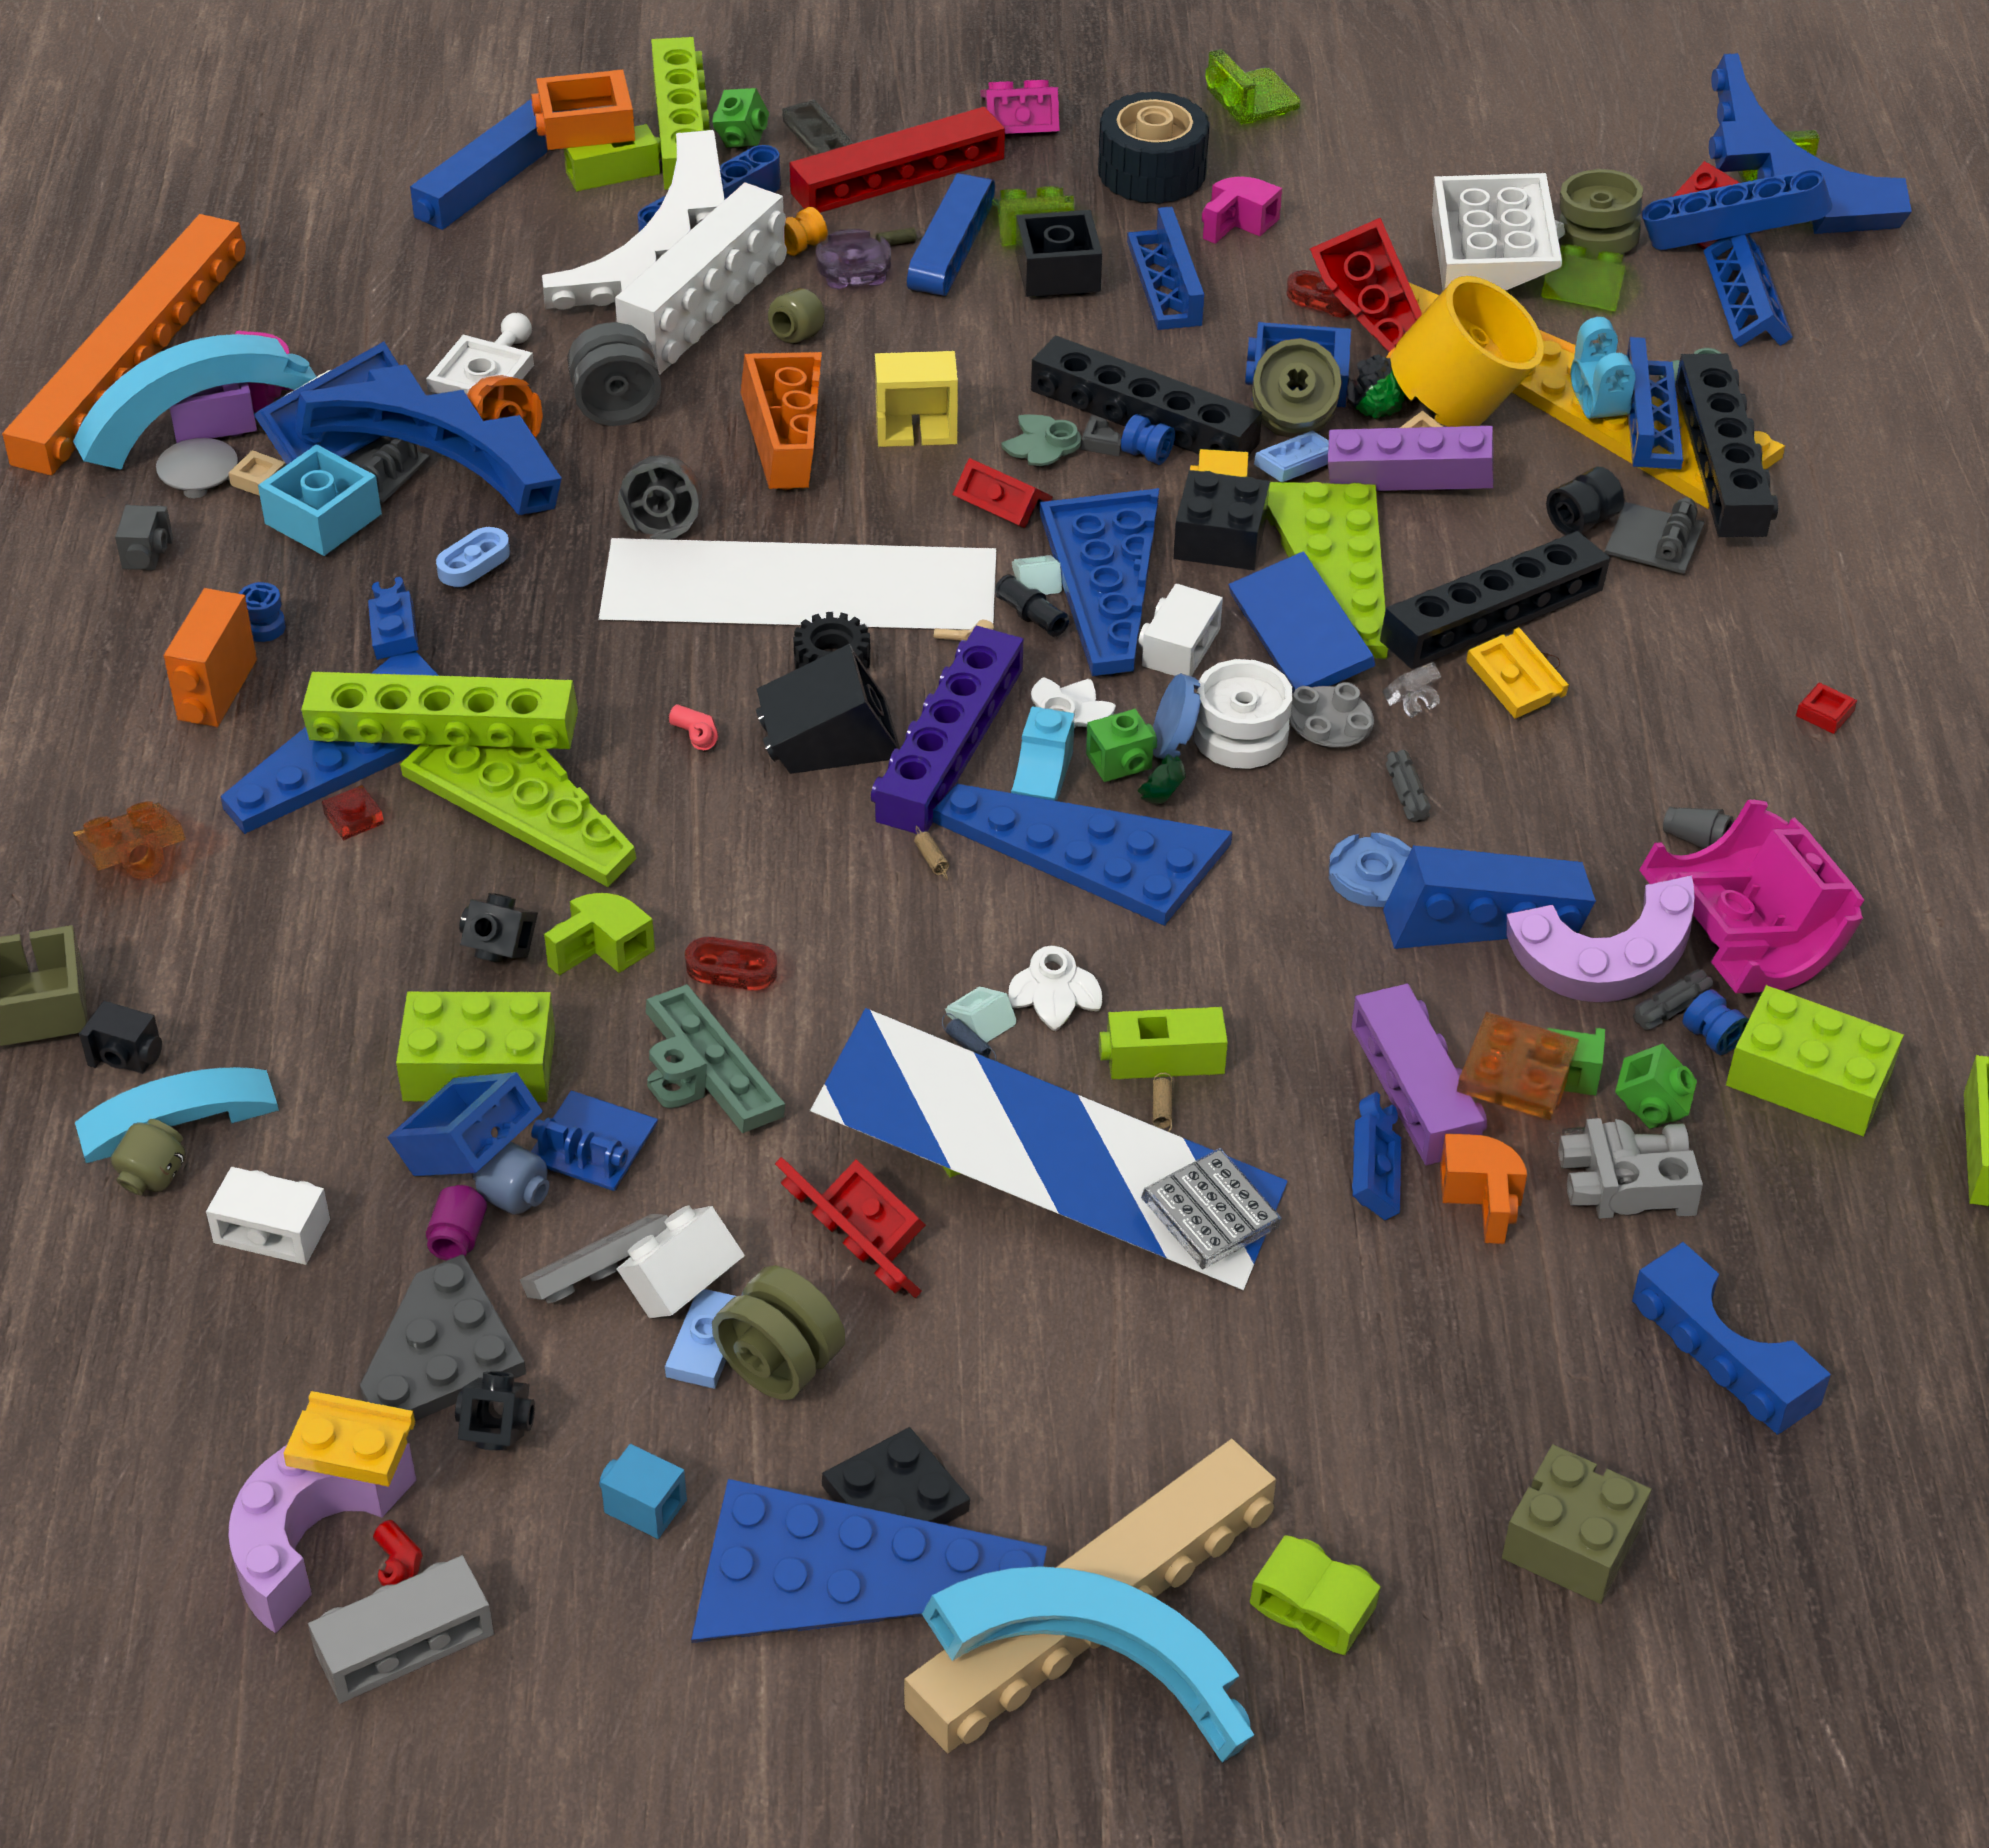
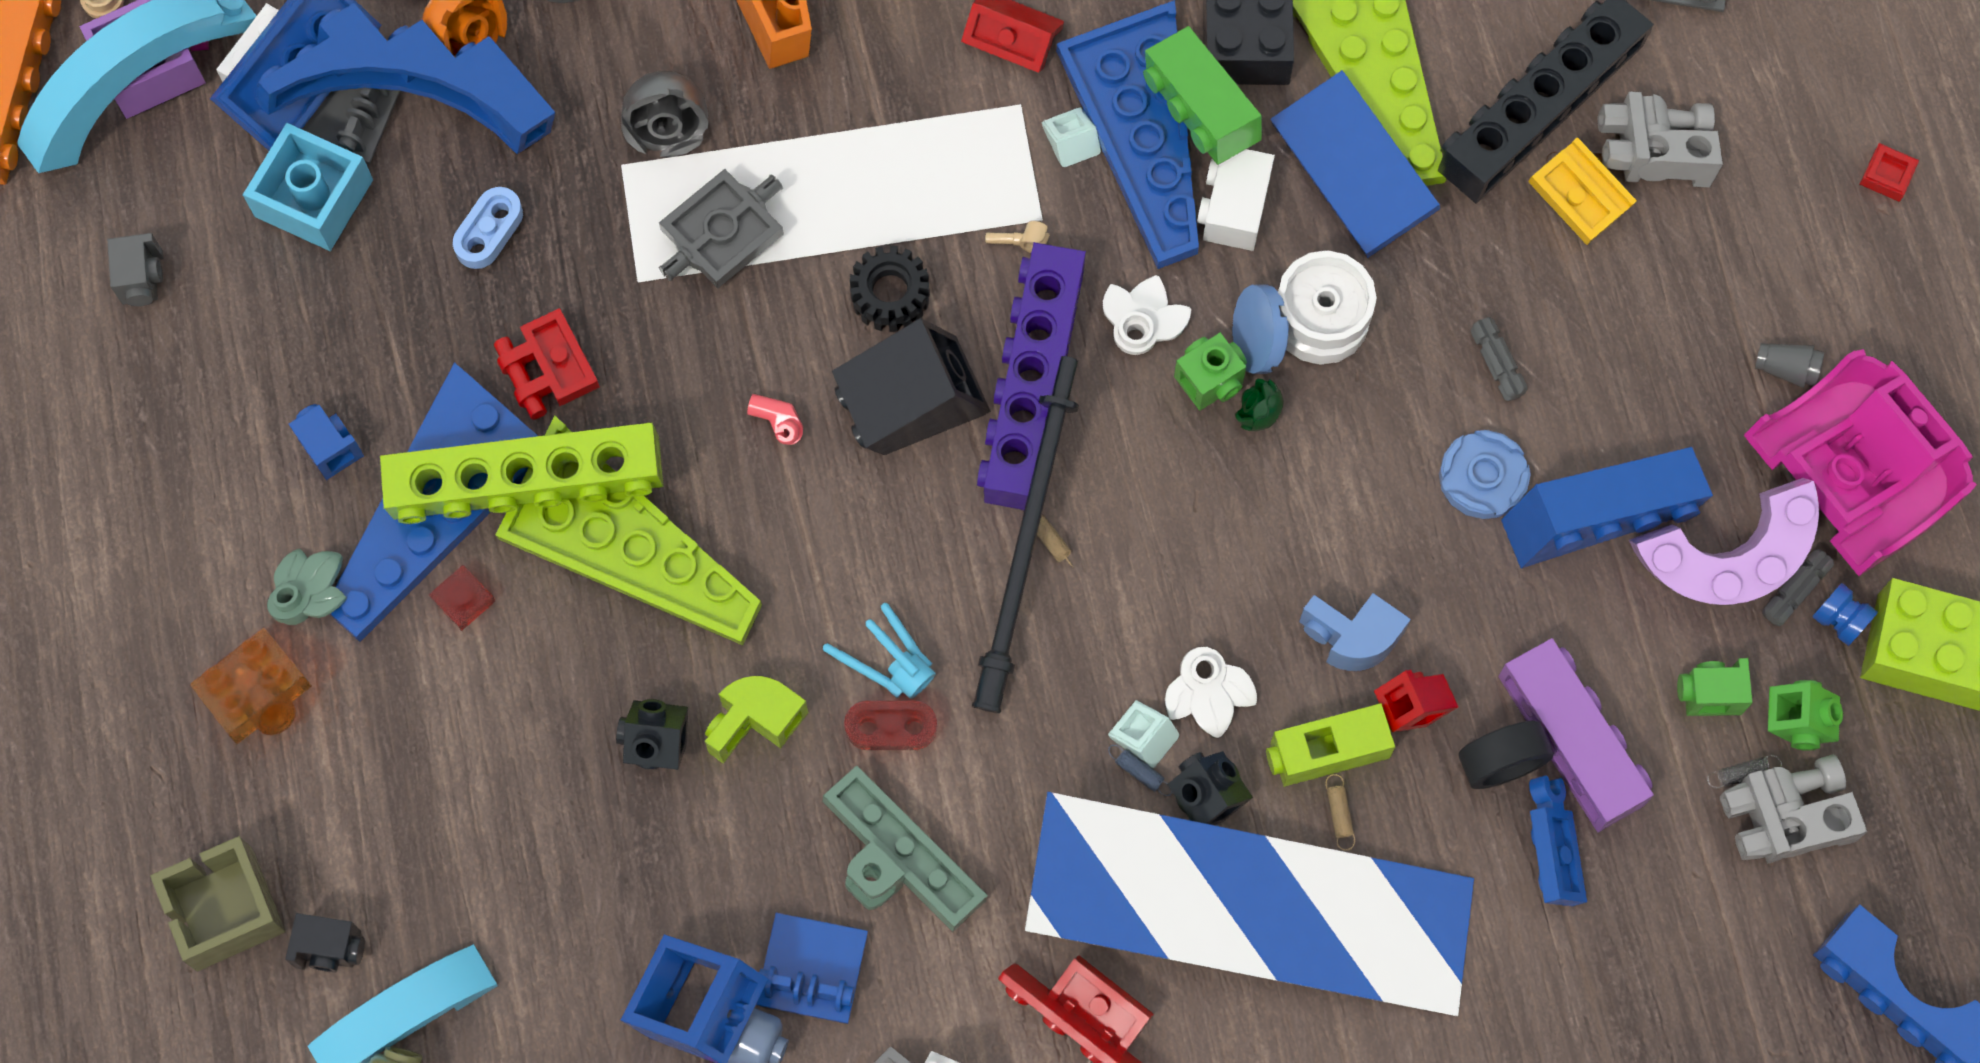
camera: 10 degrees left, 25 degrees up
(196, 465) = (158, 146): light grey dish -> none
(208, 779) = (305, 587): none -> sand green plate
(210, 657) = (260, 438): orange brick -> none
(253, 471) = (227, 151): tan plate -> none
(264, 611) = (298, 359): blue wheel -> none
(268, 678) = (325, 440): none -> blue brick
(392, 620) = (430, 335): blue plate -> none
(474, 1036) = (673, 885): lime brick -> none
(502, 646) = (559, 358): none -> red plate
(687, 585) = (721, 228): none -> dark grey plate
(759, 922) = (910, 669): none -> medium azure plant
(849, 930) = (997, 662): none -> black bar
(1031, 605) = (1077, 187): black pin -> none
(1034, 1048) = (1209, 788): none -> black brick
(1044, 753) = (1136, 401): medium azure arch -> none
(1112, 854) = (1224, 503): blue wing -> none
(1164, 541) = (1202, 96): none -> bright green brick
(1211, 1208) = (1416, 944): tile -> none
(1214, 967) = (1357, 642): none -> medium blue brick
(1258, 1015) = (1415, 700): none -> red brick
(1331, 715) = (1409, 281): light grey dish -> none
(1336, 1045) = (1505, 754): none -> black tyre
(1413, 686) = (1481, 228): clear tile -> none
(1484, 1173) = (1664, 845): orange brick -> none
(1518, 1066) = (1676, 726): clear orange plate -> none
(1600, 650) = (1655, 145): none -> light grey hips

